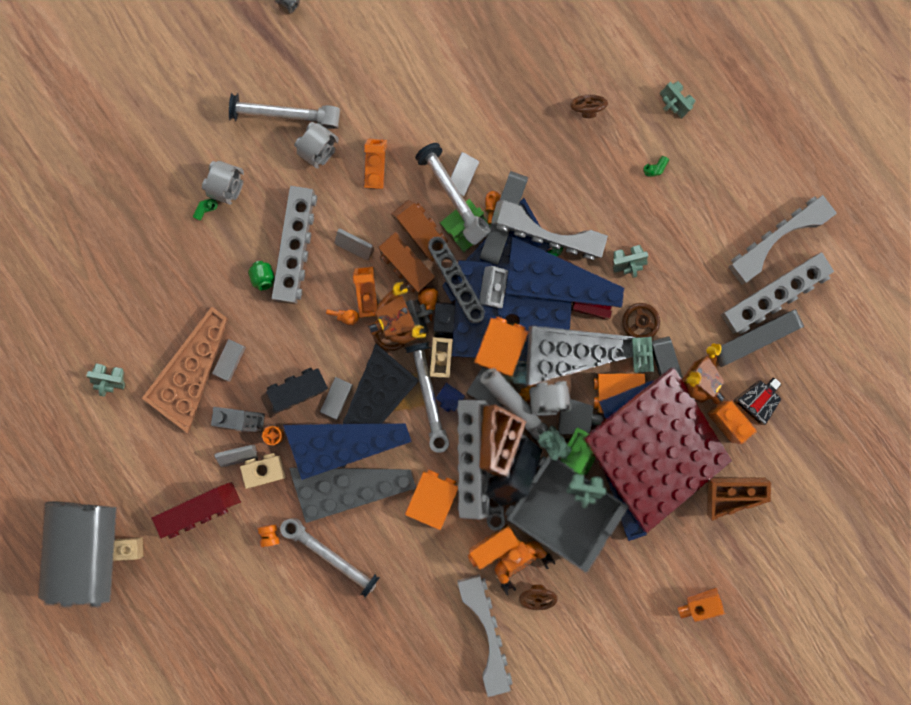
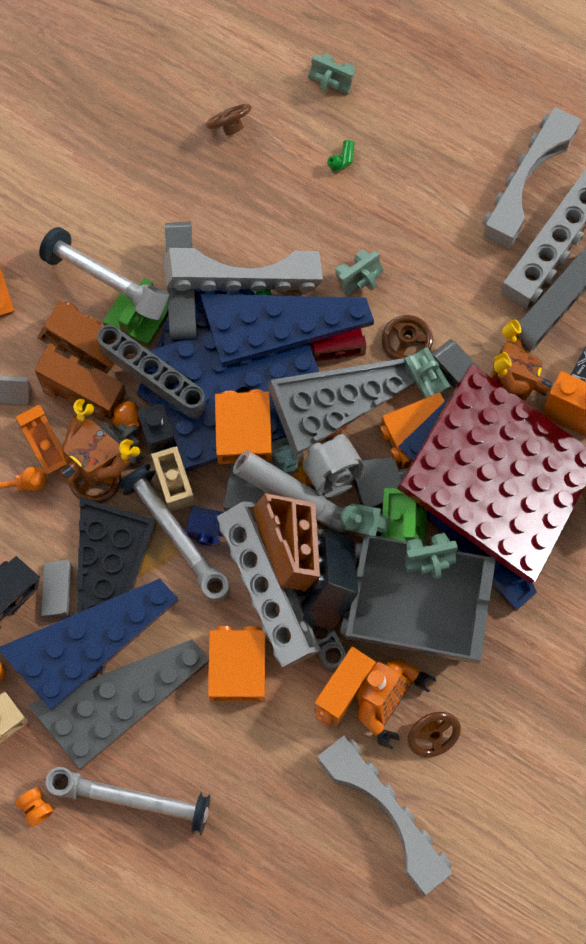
camera: 25 degrees left, 15 degrees down
(464, 172) = (109, 249): slope -> none
(490, 203) = (157, 272): orange piece -> none
(493, 287) = (202, 362): light grey slope -> none

